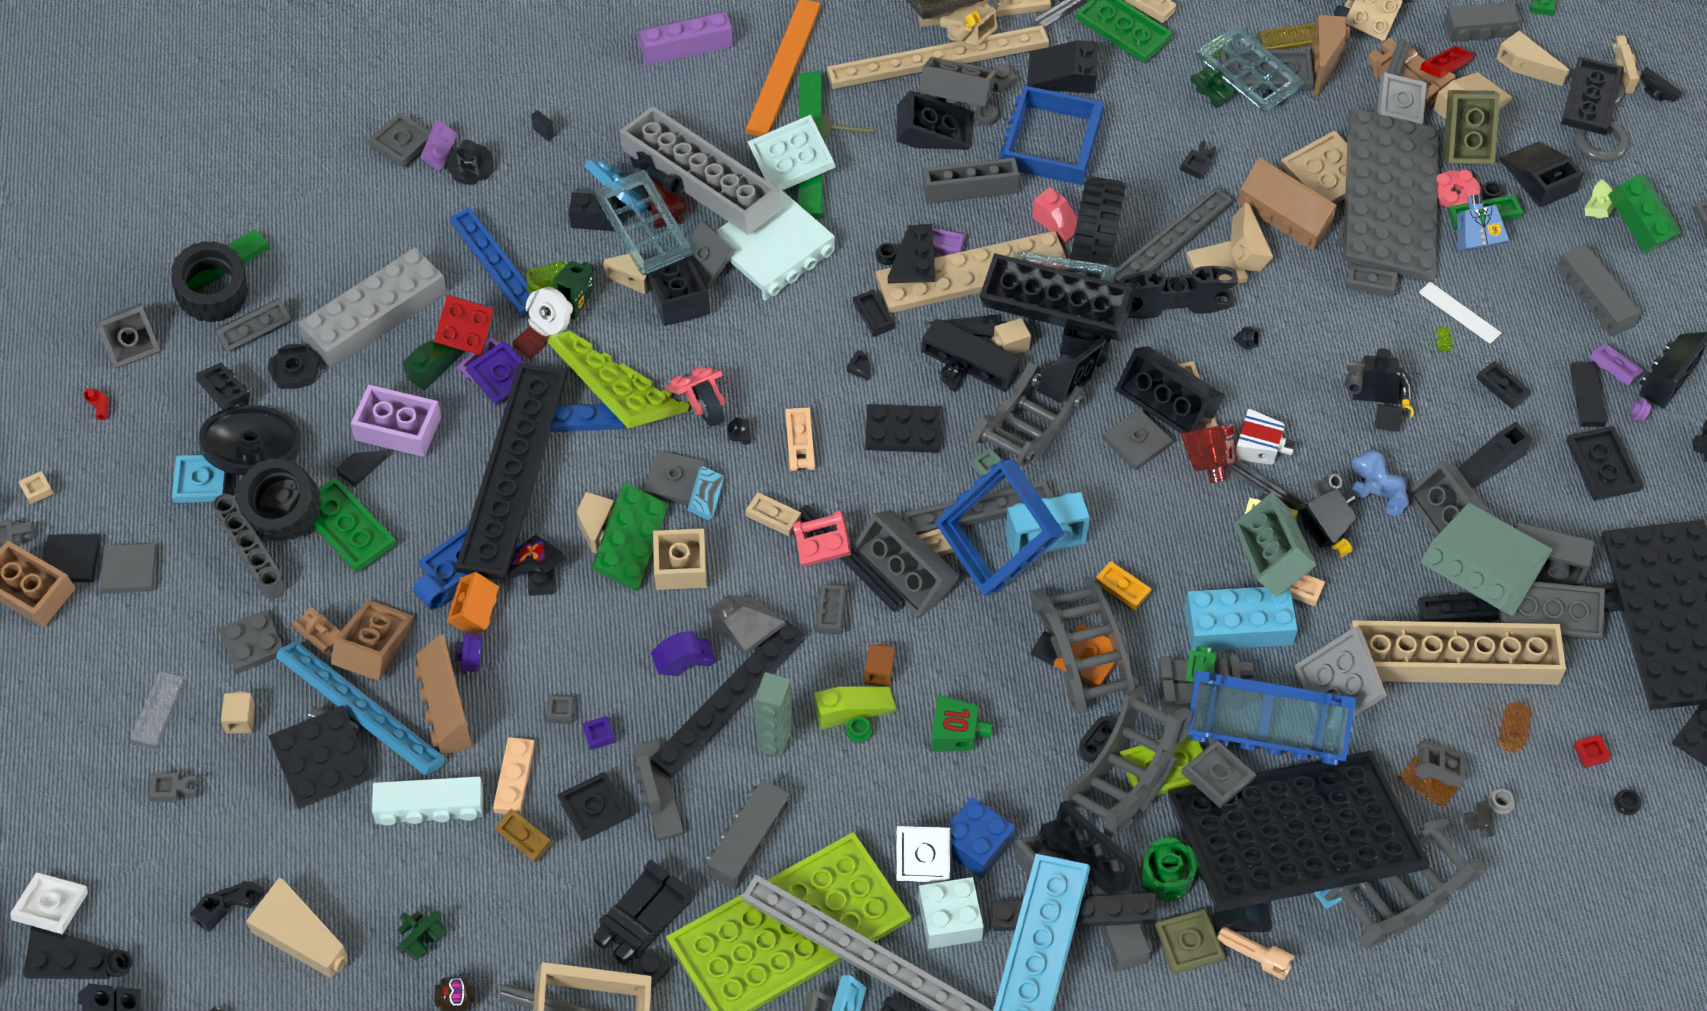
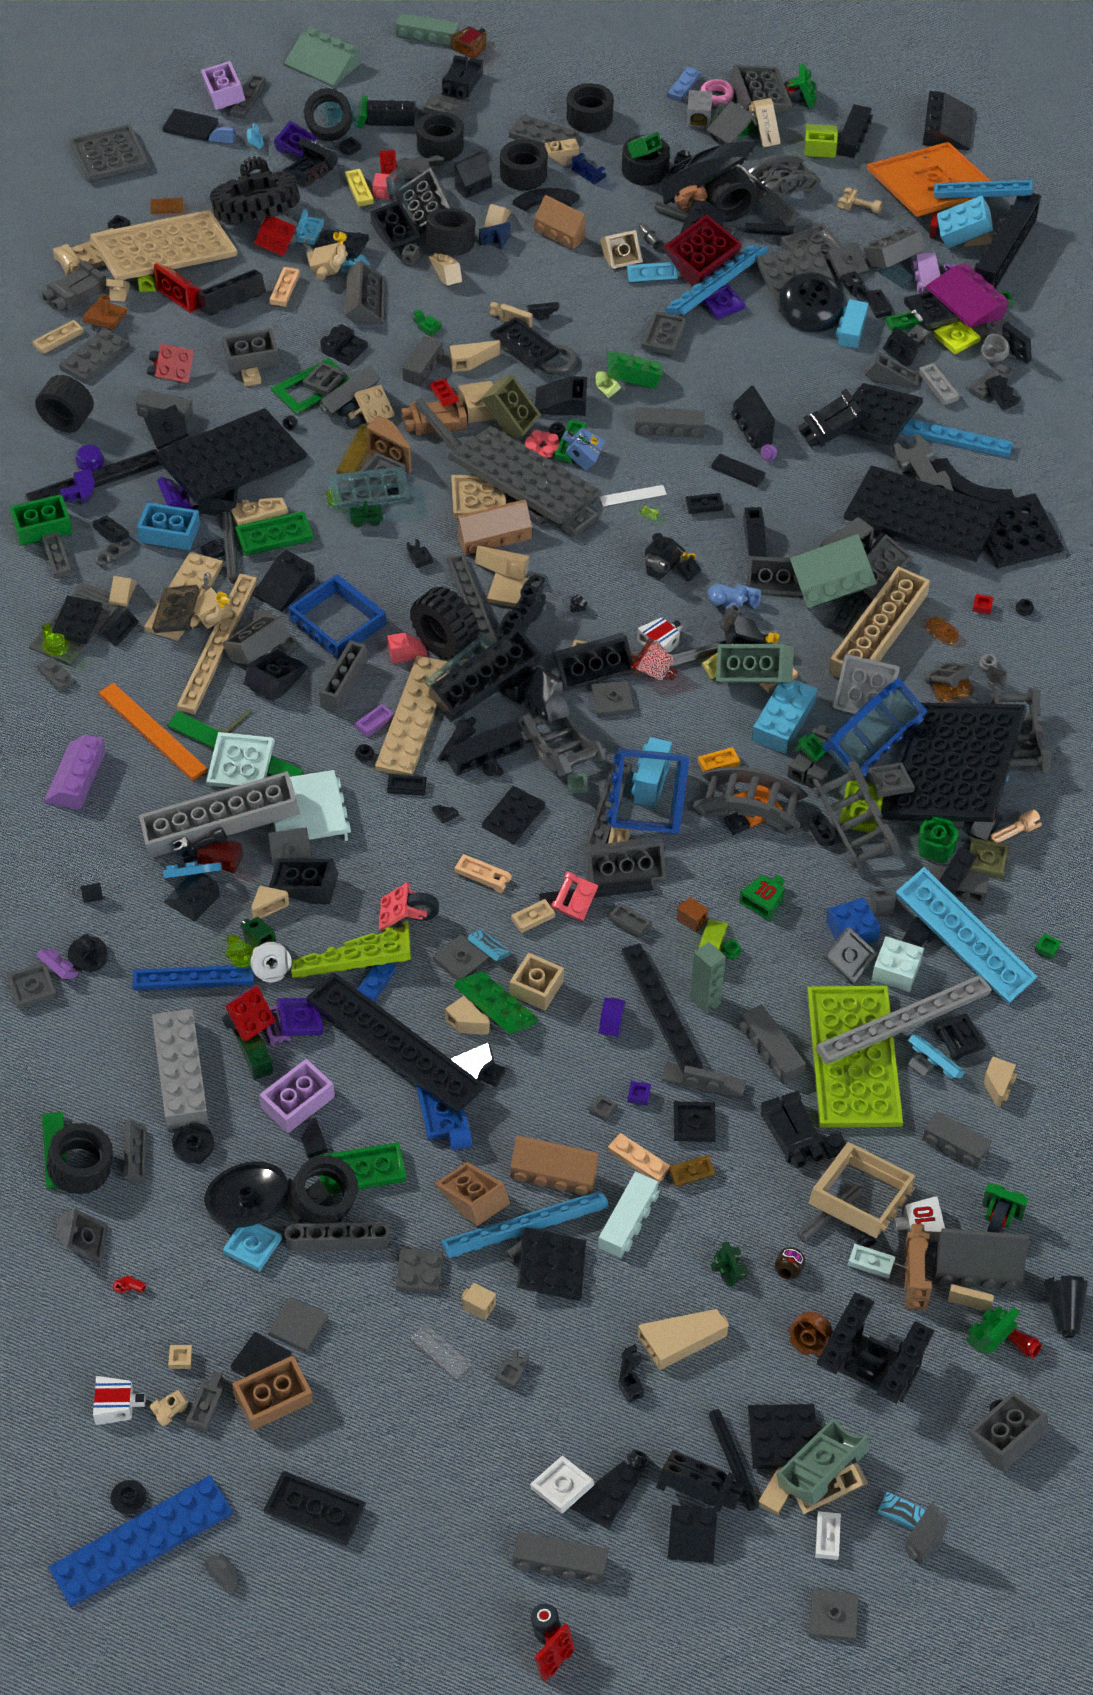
camera: 60 degrees left, 5 degrees down
(223, 386) = (183, 1191): black bracket -> none
(317, 630) = (444, 1221): medium nougat hips -> none
(469, 652) = (527, 1129): dark purple piece -> none
(473, 603) = (489, 1117): orange brick -> none
(530, 342) = (281, 989): clear red tile -> none
(663, 258) = (206, 862): clear light blue piece -> none
(739, 430) = (450, 903): black plate -> none
(744, 621) = (611, 970): flat silver slope -> none
(915, 257) = (386, 736): black wing -> none
(1012, 336) = (487, 718): tan brick -> none
(1074, 846) = (901, 874): black fence -> none
(1401, 98) = (459, 427): light grey plate -> none
(1603, 463) = (793, 489): black plate -> none
(1616, 364) = (725, 445): medium lavender plate -> none

